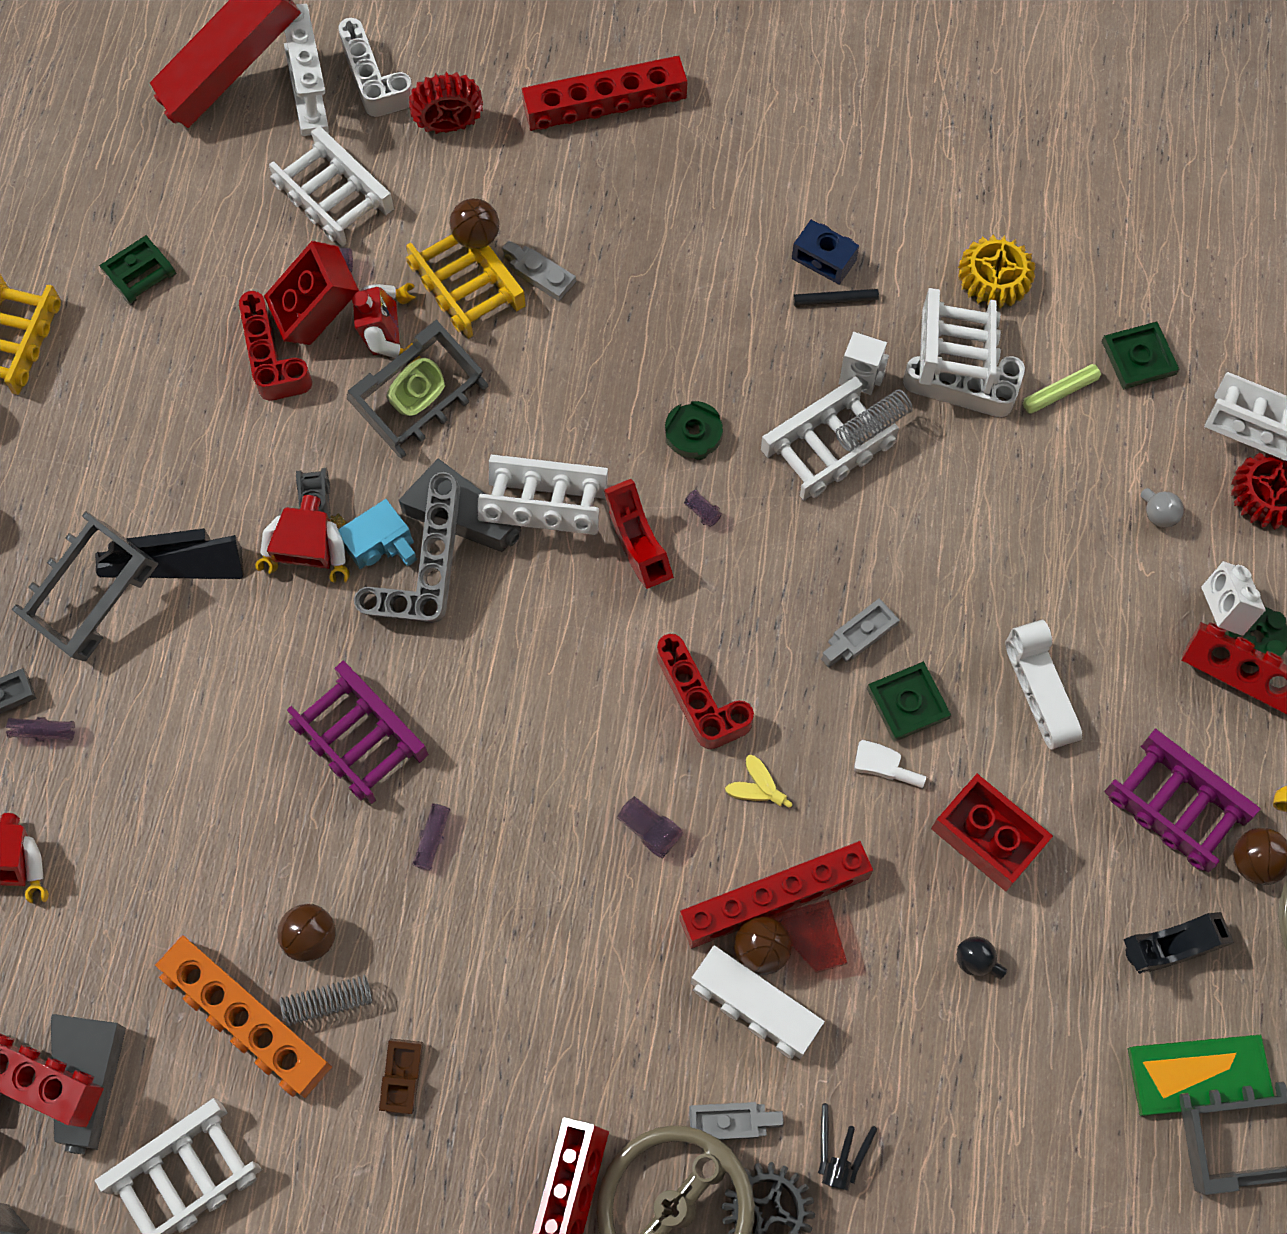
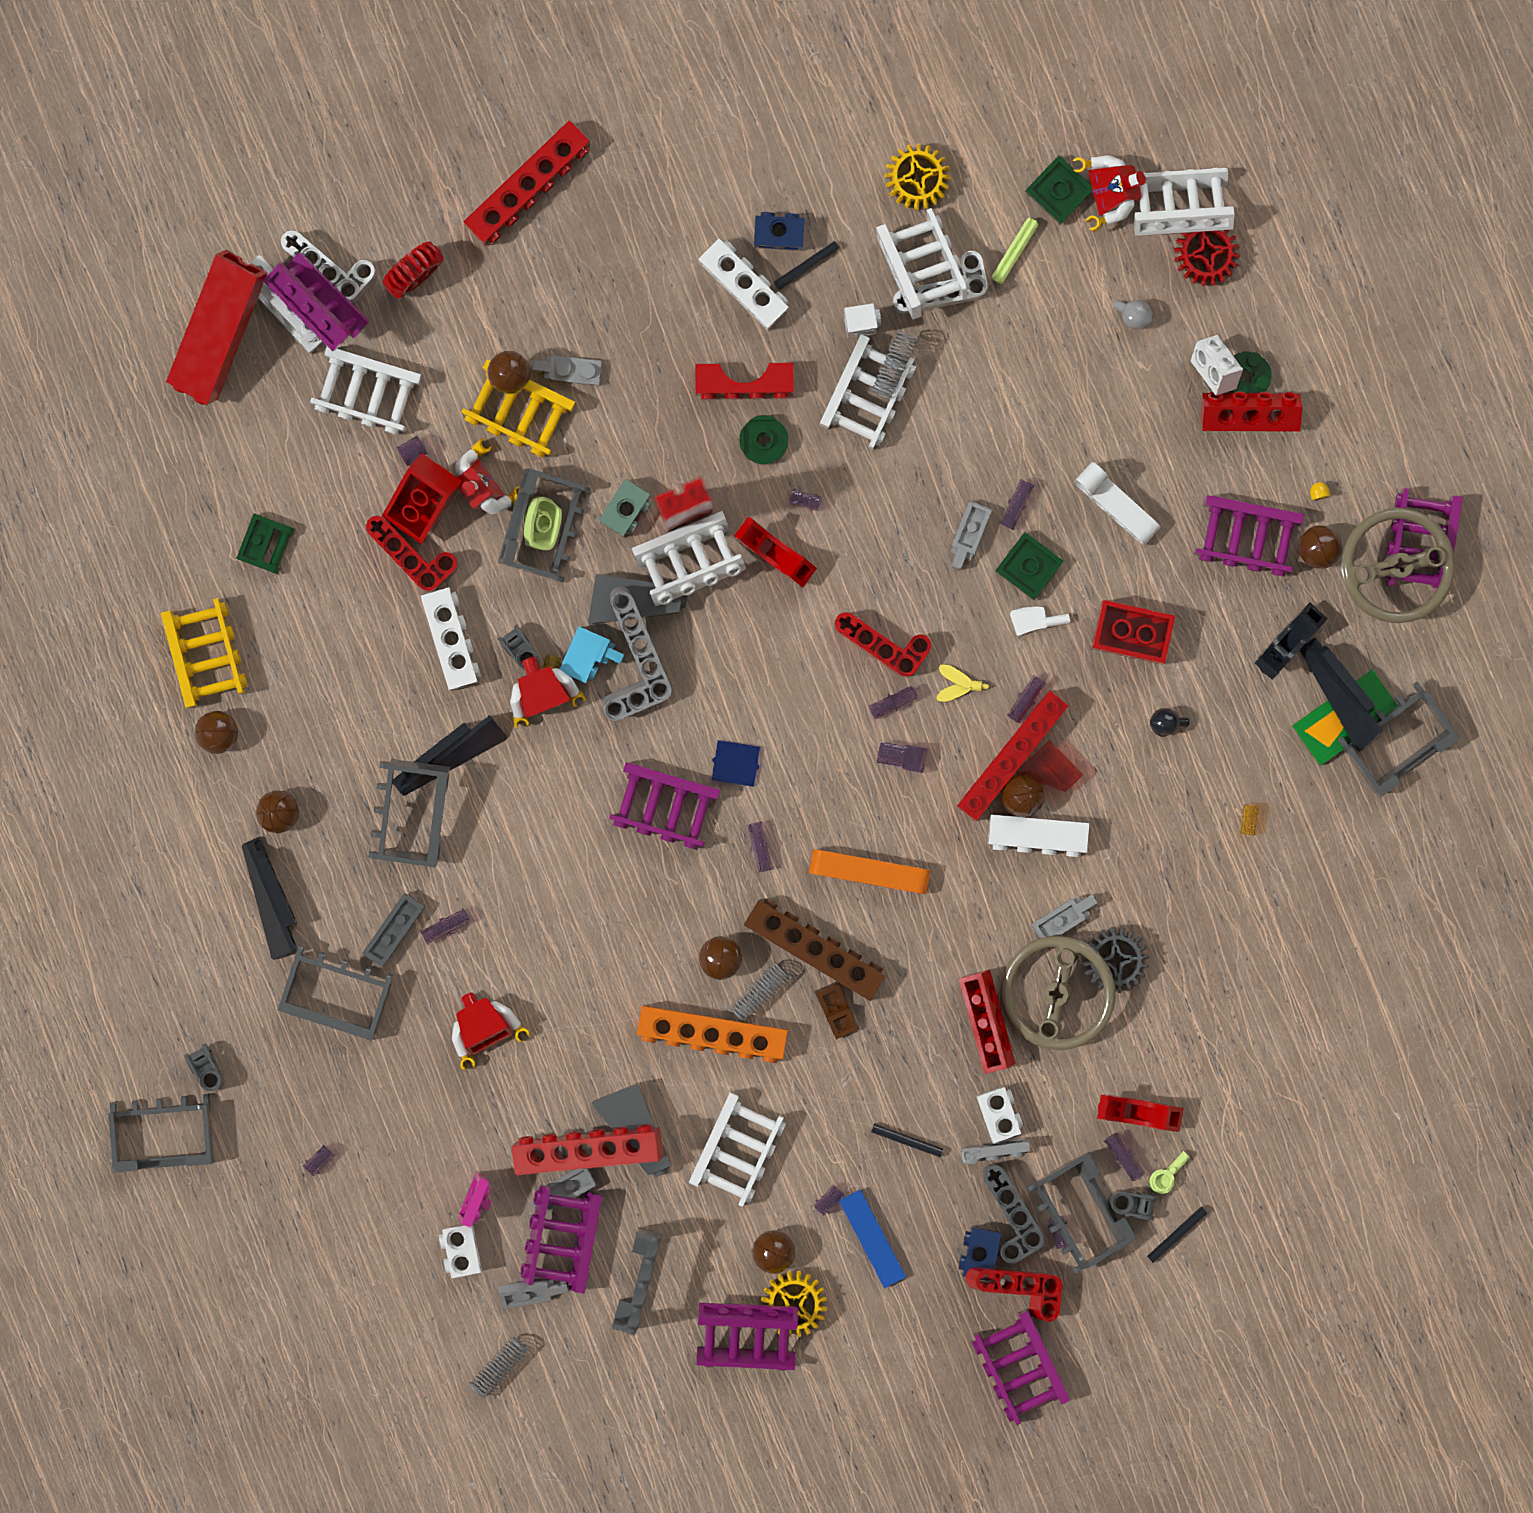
camera: 30 degrees left, 20 degrees up
(256, 406) = (433, 604): none -> white brick
(331, 68) = (316, 301): none -> magenta fence
(375, 918) = (866, 987): none -> reddish brown brick
(463, 735) = (735, 763): none -> clear blue piece
(517, 405) = (626, 494): none -> sand green brick
(537, 935) = (869, 871): none -> orange beam
(567, 410) = (686, 506): none -> red brick
(674, 762) = (892, 702): none -> clear purple axle
(739, 379) = (713, 382): none -> red arch
(769, 317) = (765, 315): none -> white brick
(827, 841) = (1026, 699): none -> clear purple pin
(838, 1171) = (1147, 910): black plant -> none
(929, 631) = (1016, 504): none -> clear purple pin
(1022, 1131) = (1249, 819): none -> clear yellow pin
(1202, 373) = (1113, 187): none -> torso
(1215, 1044) = (1343, 694): none -> black wedge

